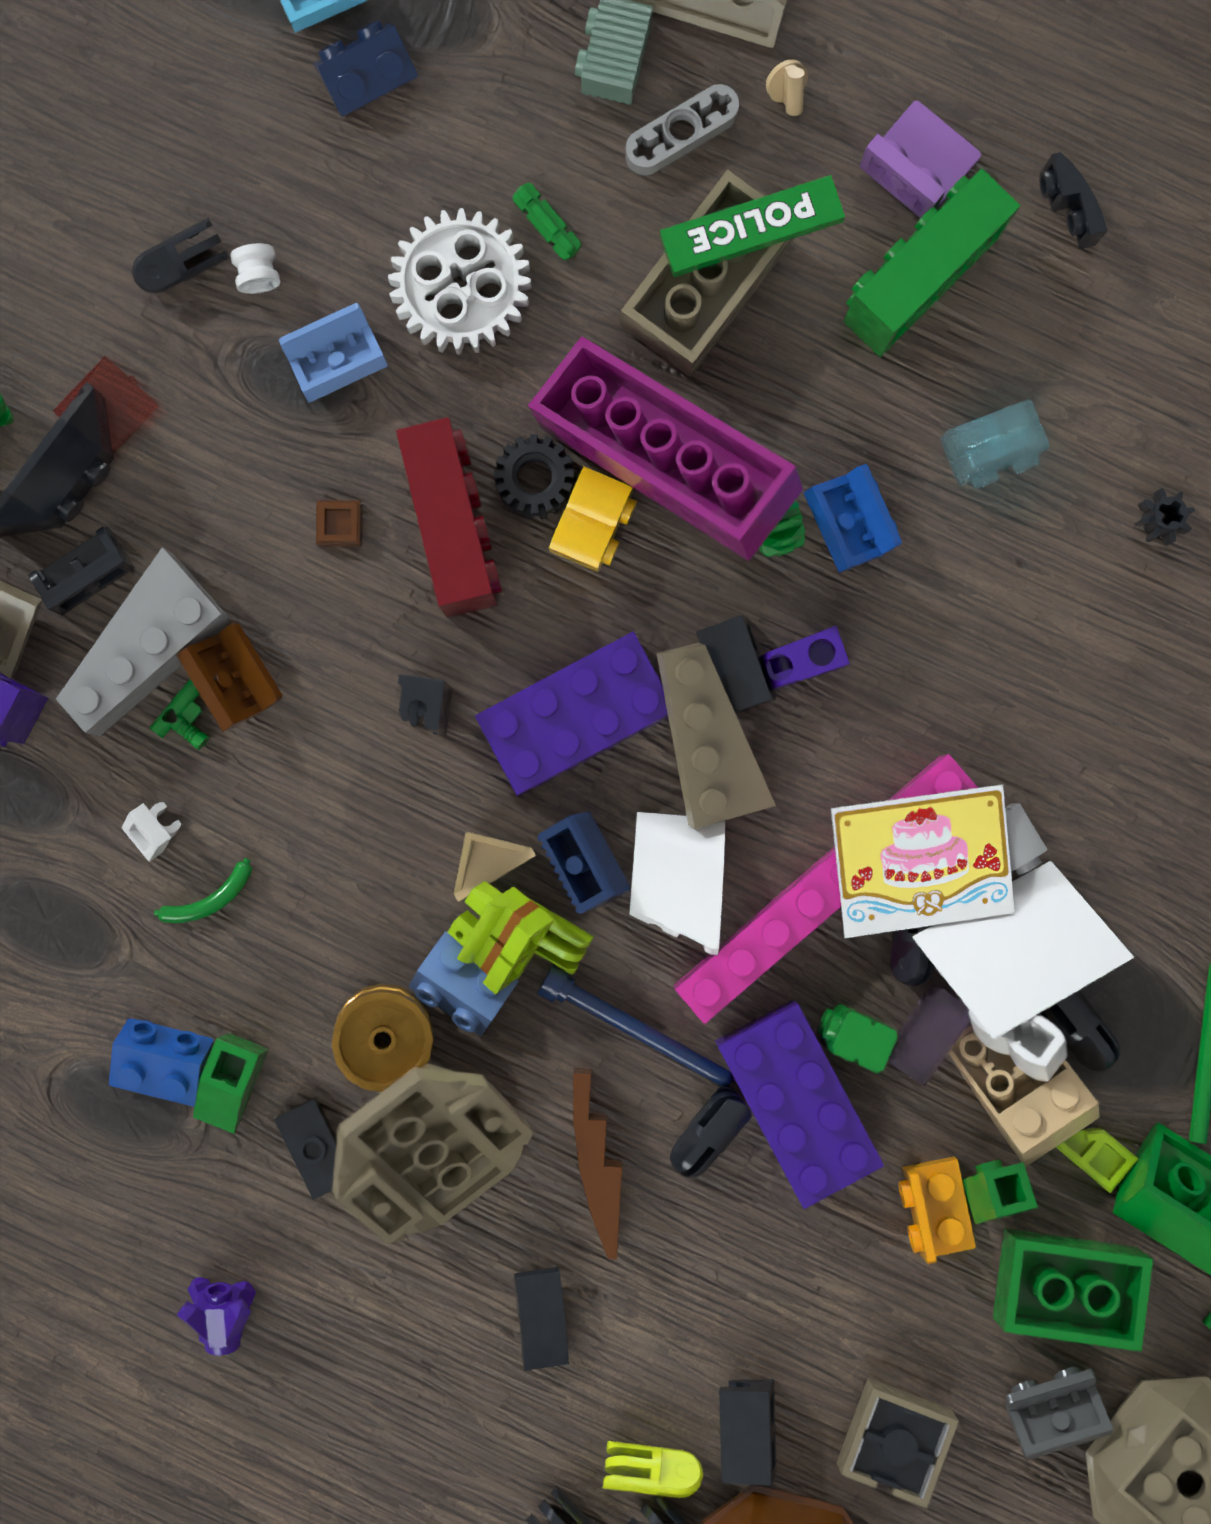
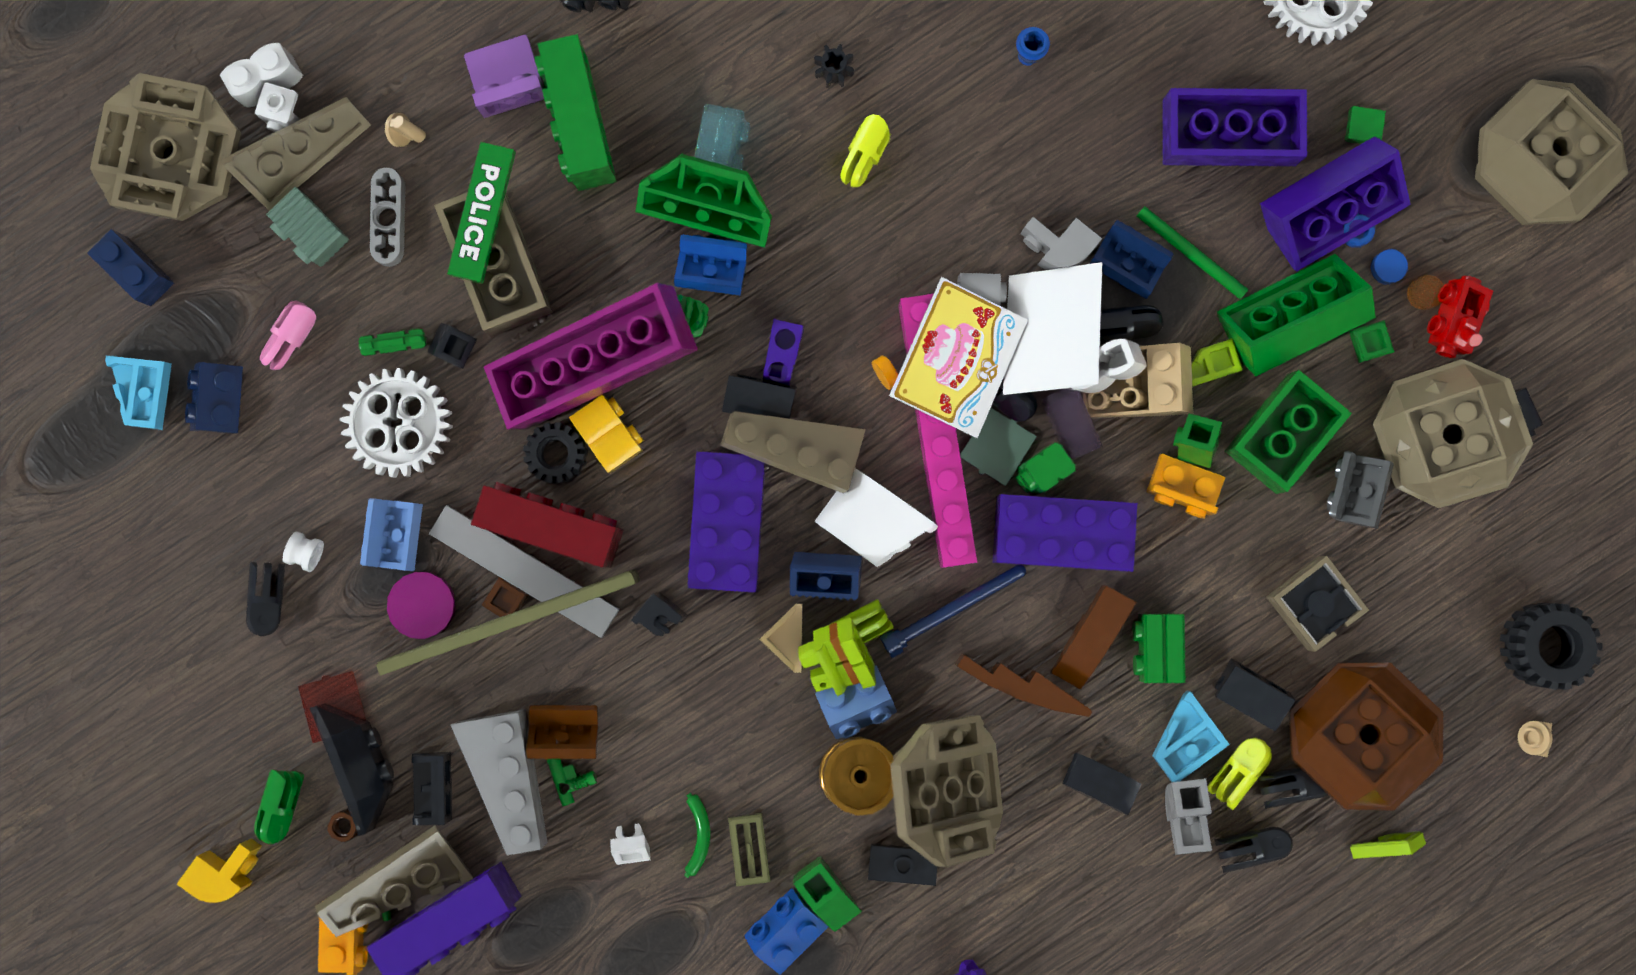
camera: 60 degrees left, 0 degrees up
(257, 941) = (753, 878): none -> olive tile
(276, 434) = (421, 605): none -> magenta tile
(316, 541) = (508, 621): none -> olive tile
(382, 526) = (520, 569): none -> light grey tile
(495, 102) = (287, 334): none -> bright pink arm
(570, 1436) = (1187, 809): none -> light grey brick
(584, 289) = (452, 345): none -> black slope
(650, 1387) = (1188, 740): none -> medium azure wing
(701, 1207) = (1093, 636): none -> reddish brown slope
(710, 1132) = (1049, 601): black arm -> none
(735, 1292) = (1160, 648): none -> green brick
(848, 968) = (998, 447): none -> sand green piece
(855, 787) = (885, 371): none -> light orange tile
(924, 466) = (706, 199): none -> green wedge
(1091, 611) = (865, 150): none -> neon yellow arm
(1114, 902) = (1060, 252): none -> light grey brick
(1158, 989) = (1132, 259): none -> dark blue bracket

